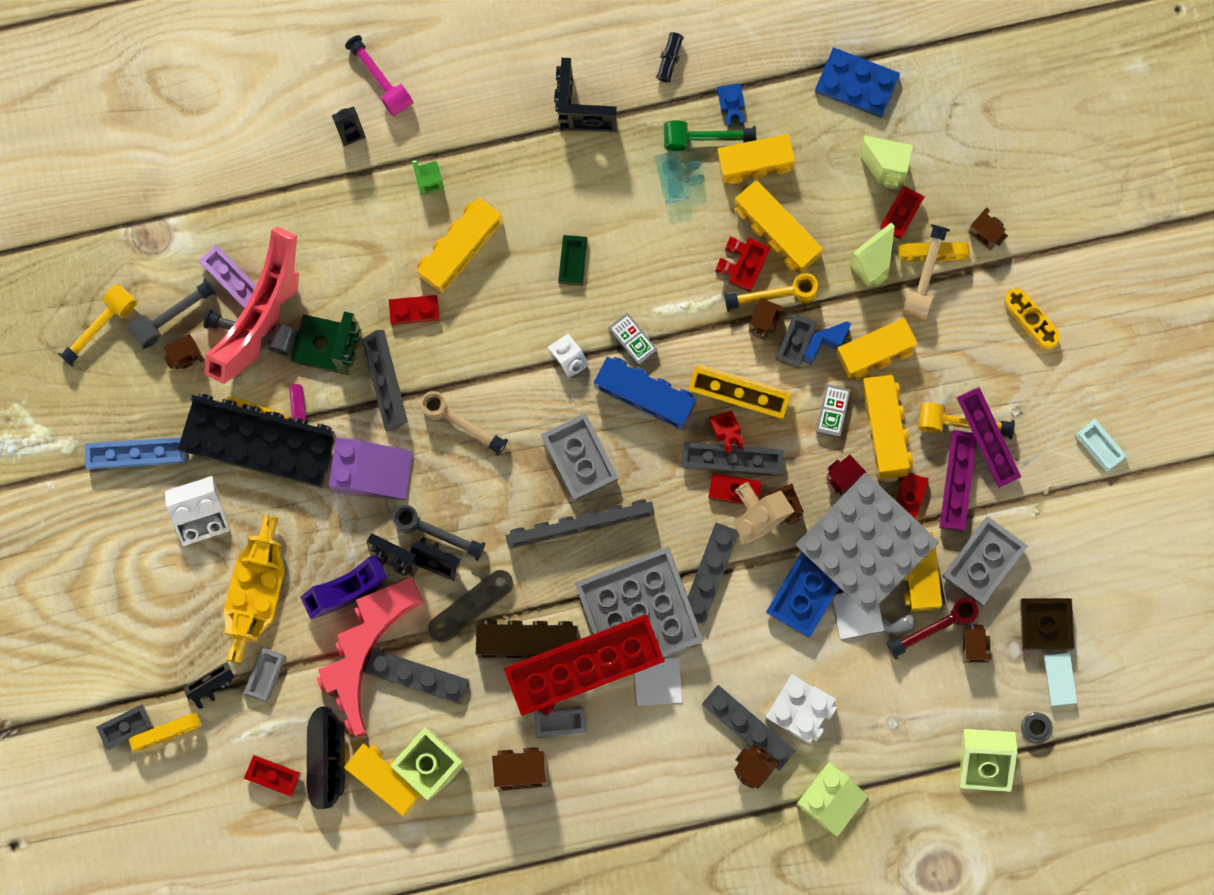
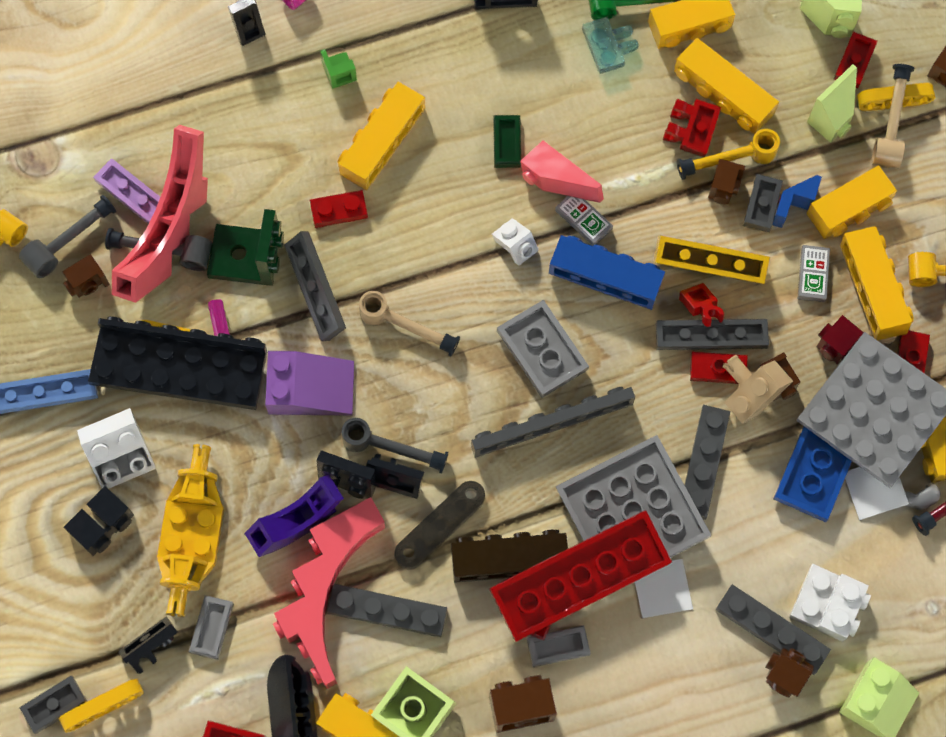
camera: 15 degrees left, 5 degrees down
(168, 583) = (110, 511): none -> black piece
(612, 298) = (558, 175): none -> coral slope

